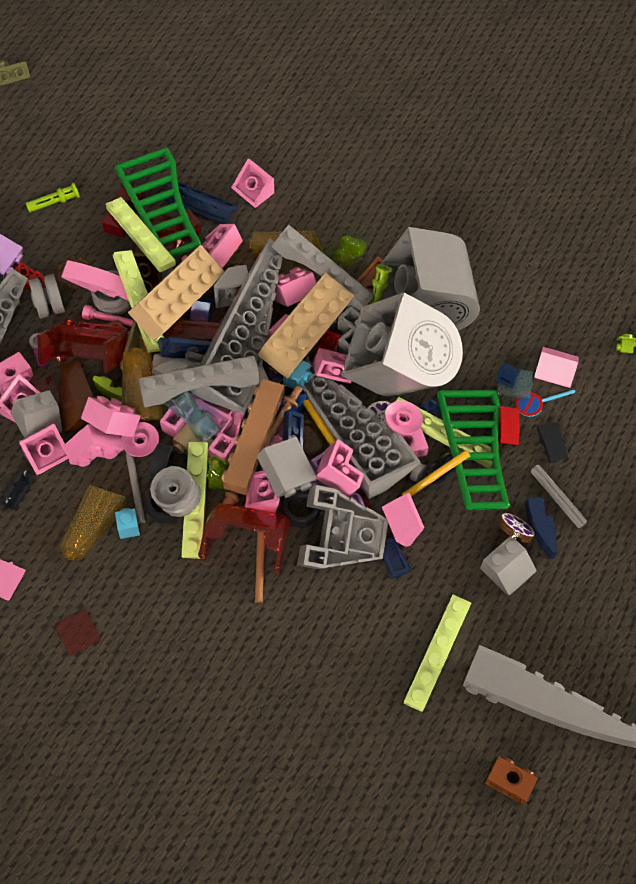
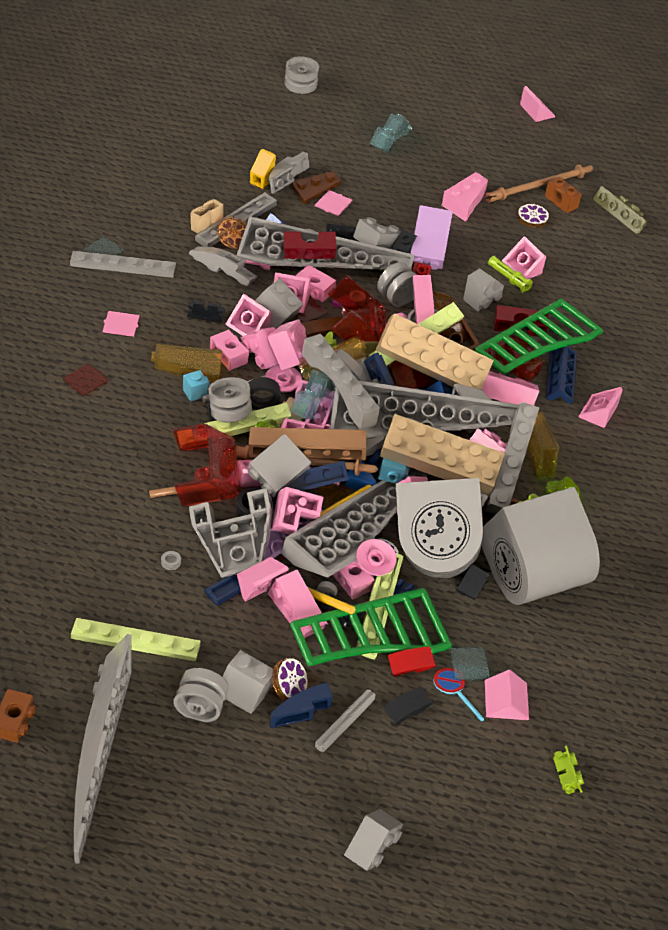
camera: 70 degrees right, 15 degrees down
(40, 178) = (526, 259): none -> bright pink slope
(76, 228) = (482, 290): none -> light grey brick
(76, 487) = (233, 352): none -> bright pink brick
(140, 234) = (492, 325): yellowish green plate -> none
(348, 599) = (171, 560): none -> light grey tile
(436, 498) = (294, 600): none -> bright pink wedge
(508, 375) = (472, 649): dark blue tile -> none
(524, 605) = (201, 694): none -> light grey wheel

